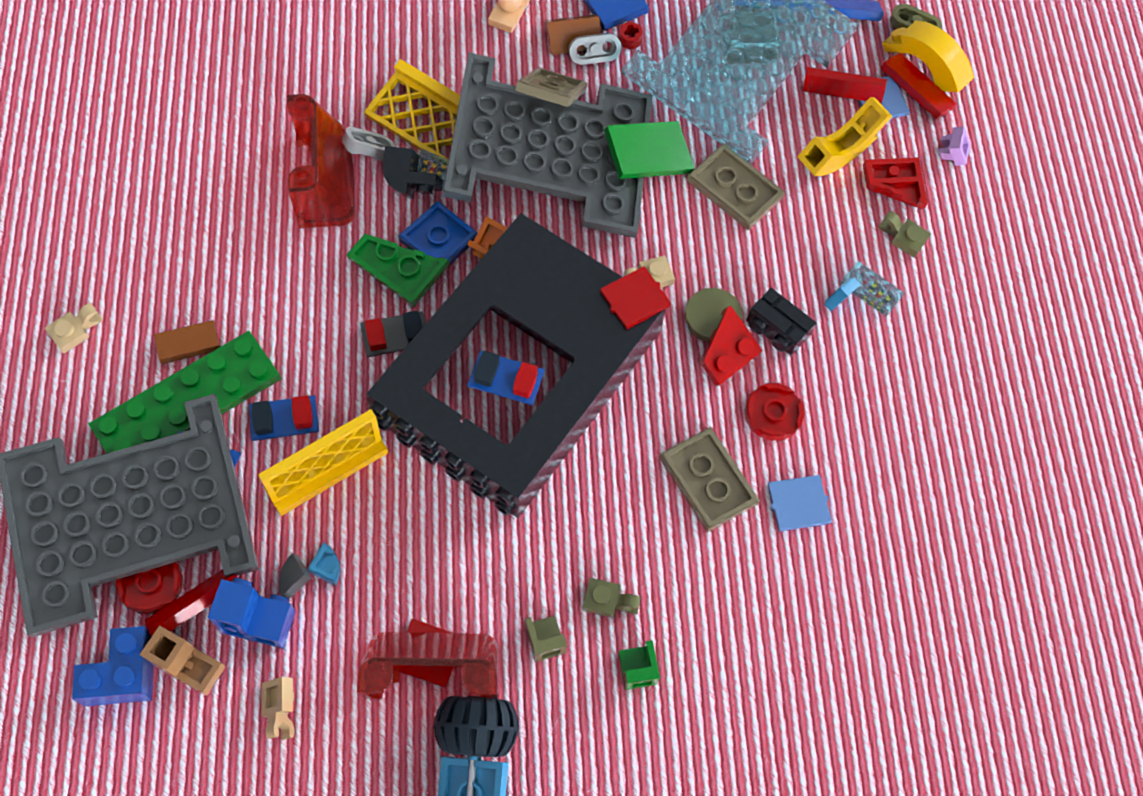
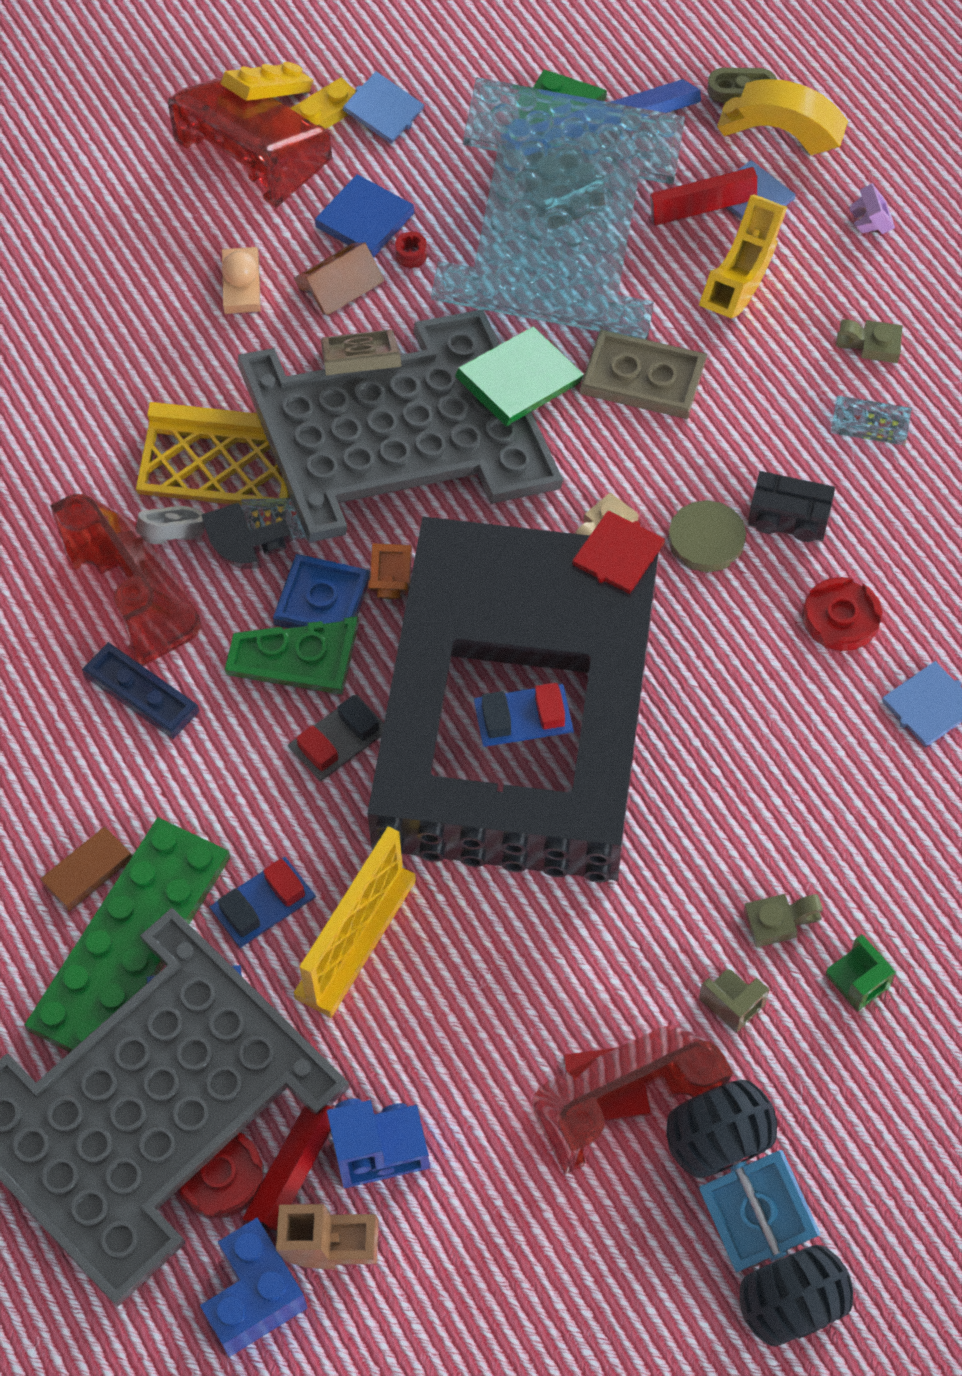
camera: 20 degrees left, 5 degrees down
(276, 702) = (464, 1230): tan plate -> none
(289, 243) = (140, 690): none -> dark blue tile
(292, 576) = (392, 1077): dark grey tile -> none
(325, 565) = (423, 1046): dark azure tile -> none
(593, 48) = (376, 285): light grey plate -> none
(709, 479) = (813, 726): dark tan tile -> none
(729, 348) = (749, 564): red wing -> none
(842, 293) = (842, 442): dark azure tile -> none
(897, 179) = (827, 280): red wing -> none
(918, 85) = (788, 159): red tile -> none

